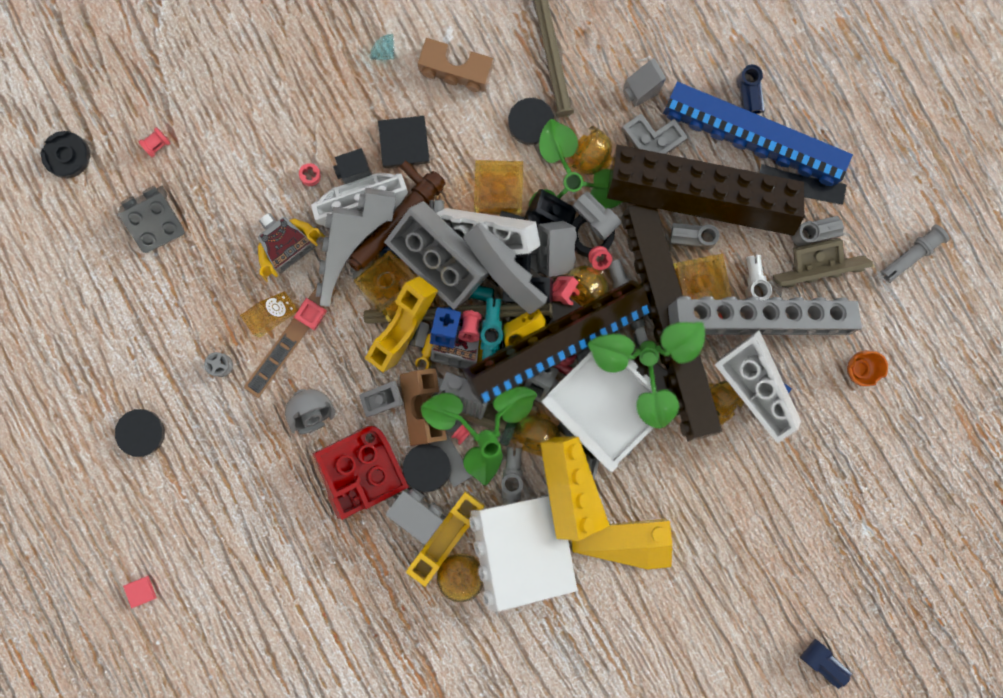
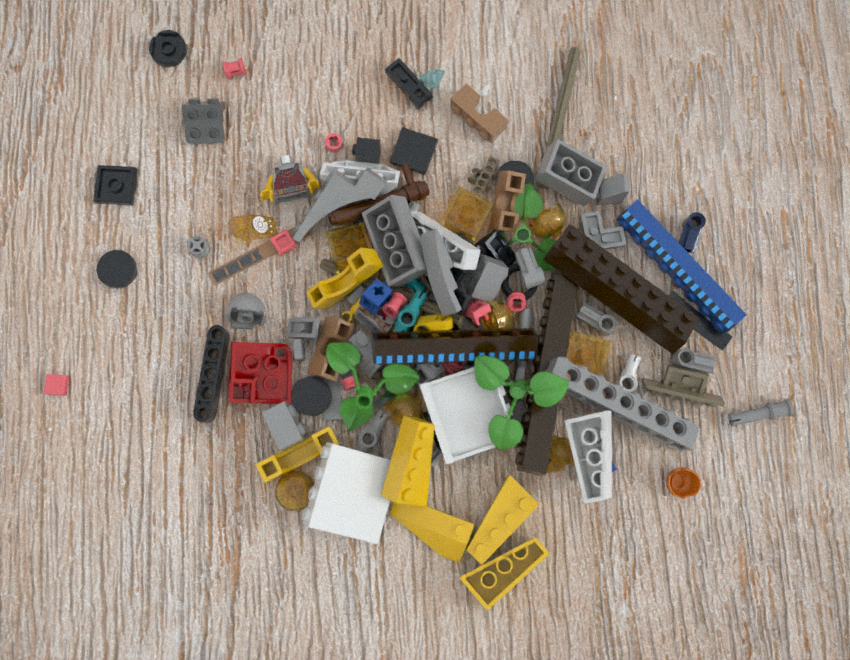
camera: 25 degrees right, 5 degrees down
(88, 339) = (115, 185): none -> black tile
(304, 510) = (215, 383): none -> black beam
(360, 66) = (408, 83): none -> black plate
(388, 424) = (299, 350): none -> light grey tile
(491, 132) = (483, 173): none -> dark tan piece
(530, 138) = (508, 187): none -> medium nougat arch
(591, 85) = (571, 172): none -> light grey brick
(694, 500) = (502, 518): none -> yellow wedge
(722, 558) = (502, 573): none -> yellow wedge

